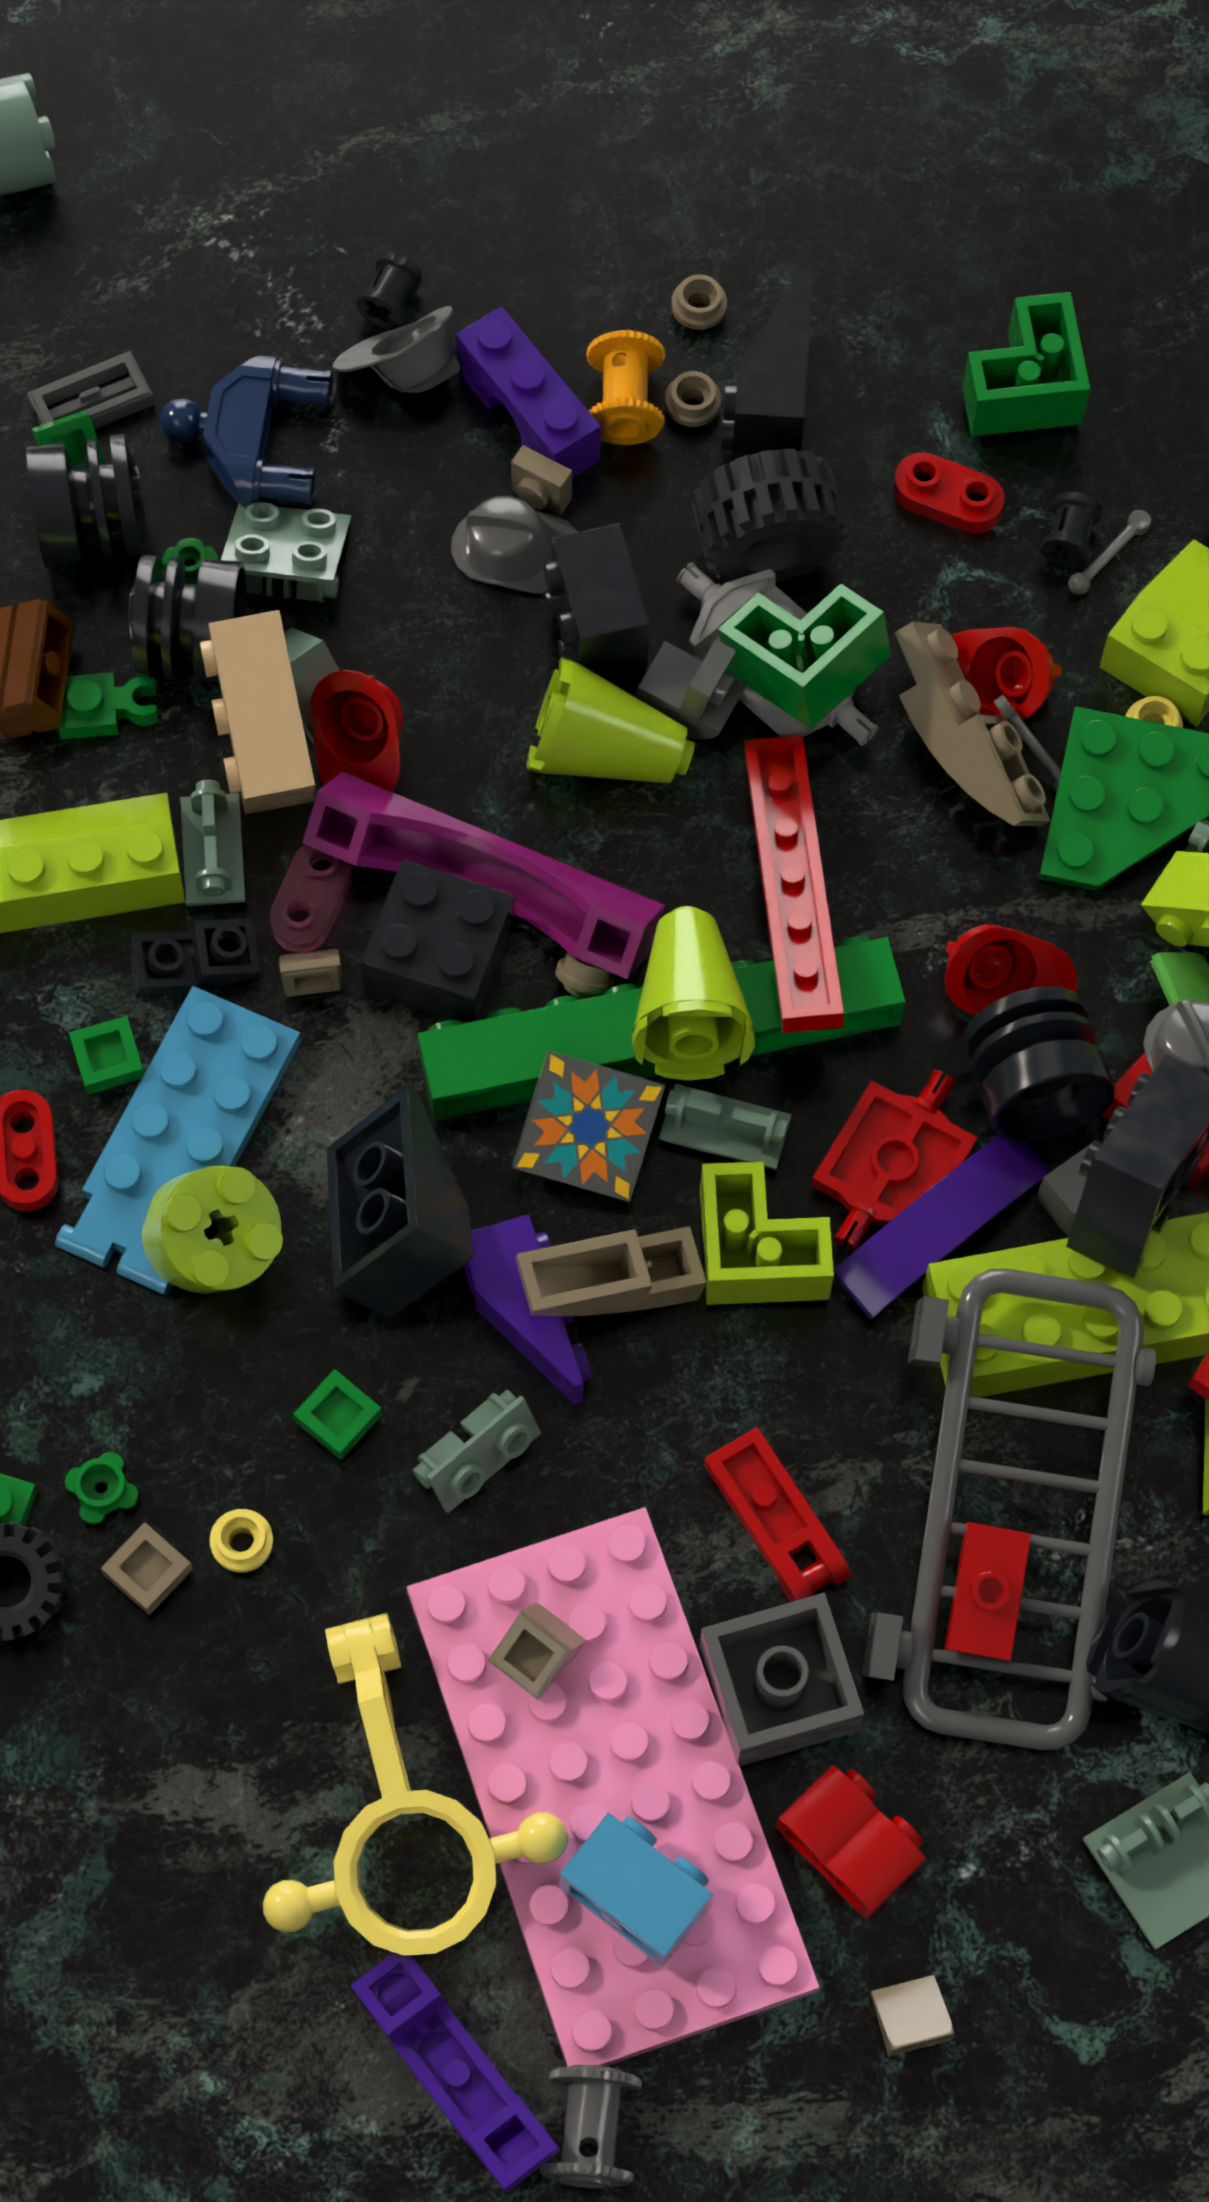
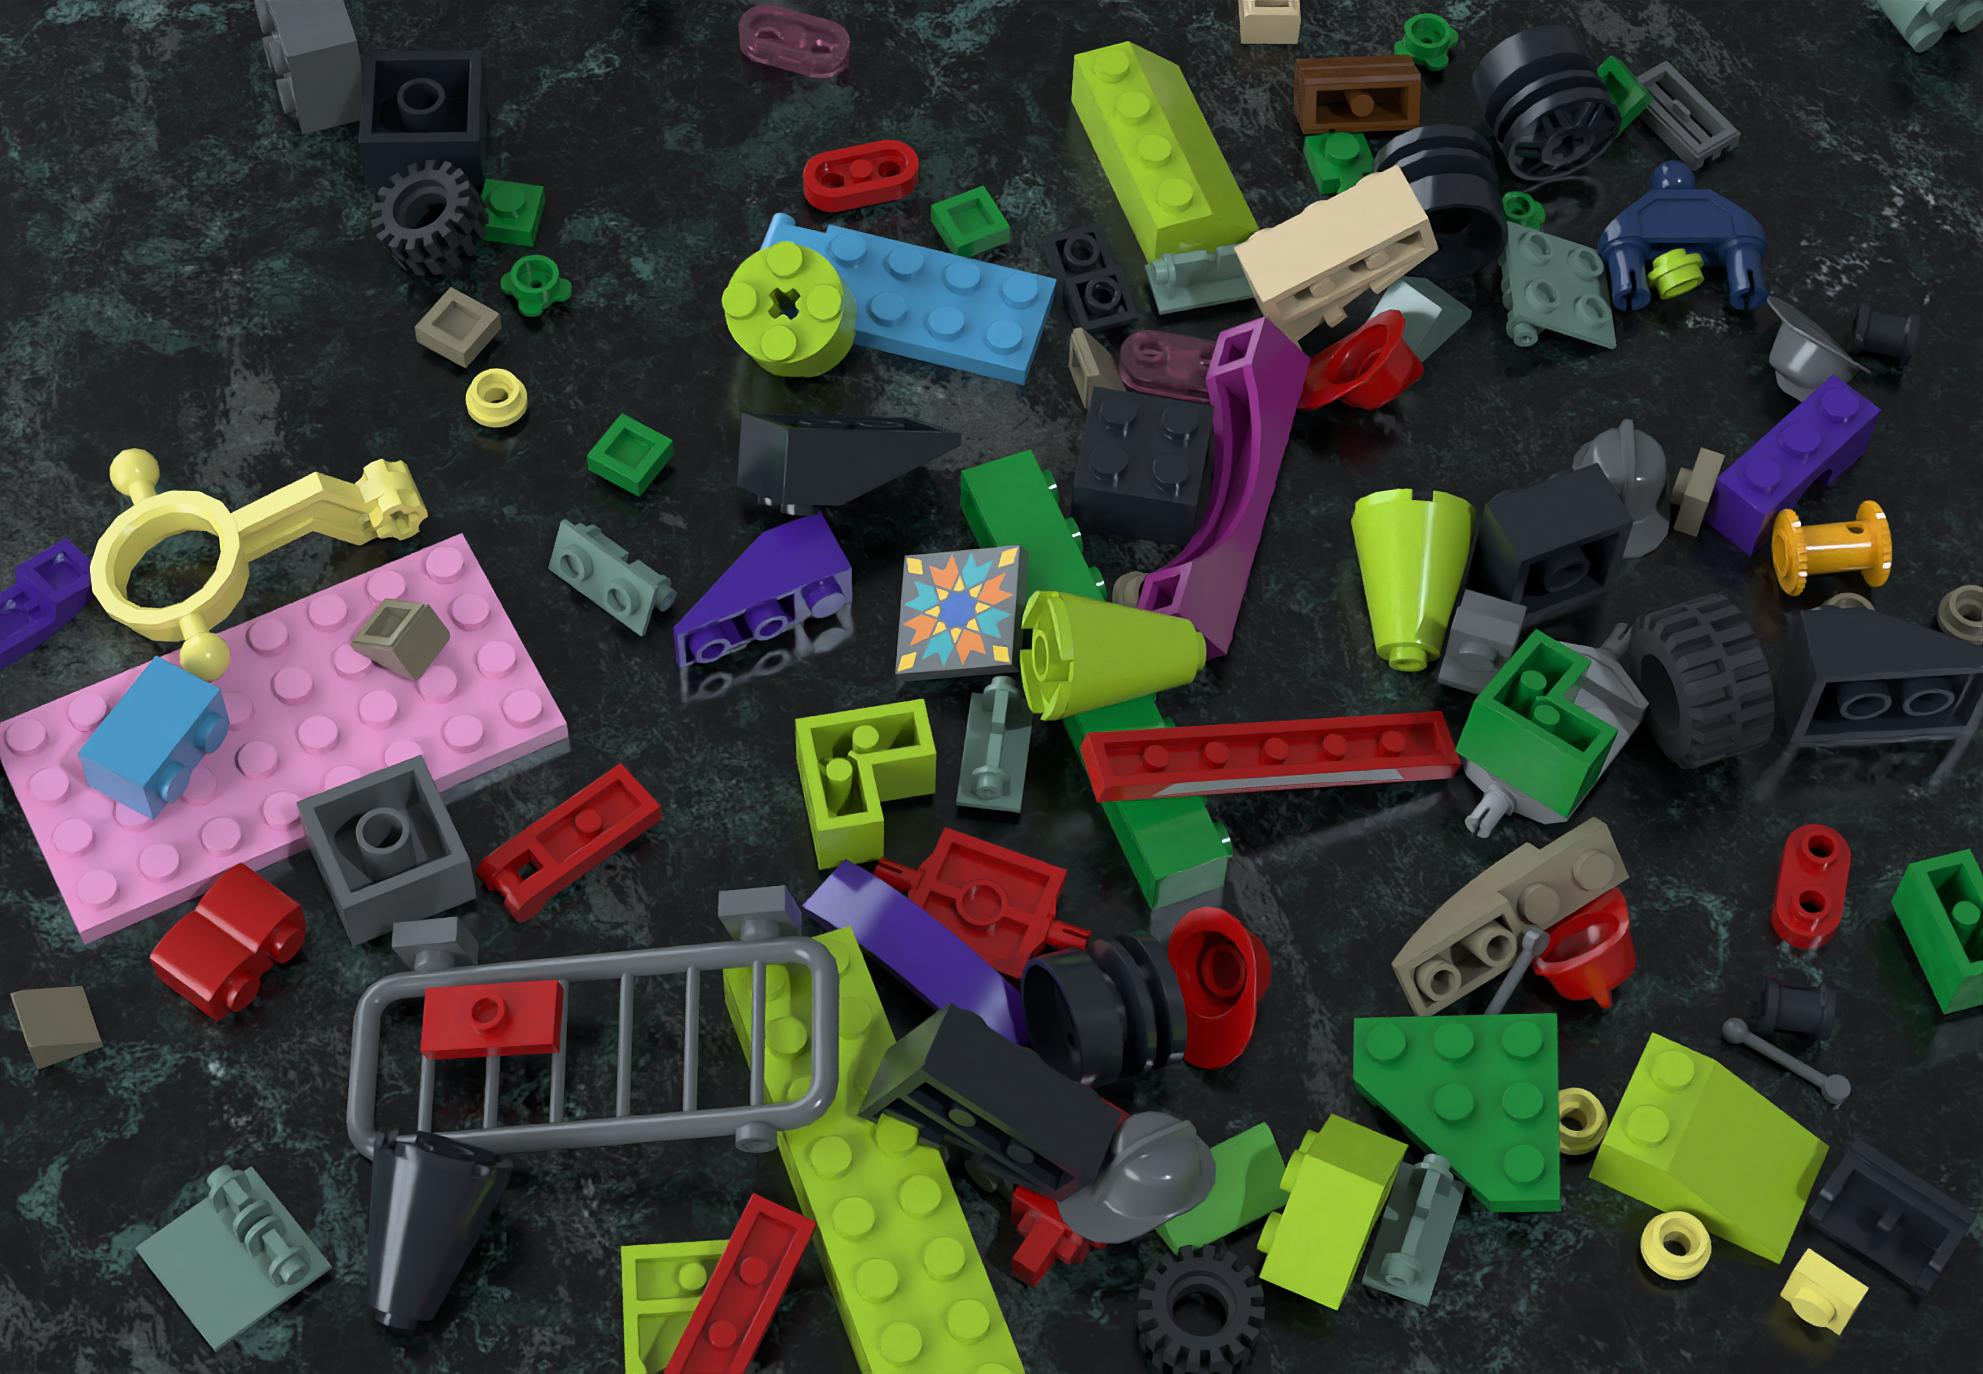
camera: 80 degrees right, 10 degrees down
(290, 442) = (1675, 273): none -> lime plate
(612, 1274) = (795, 635): dark tan slope -> none

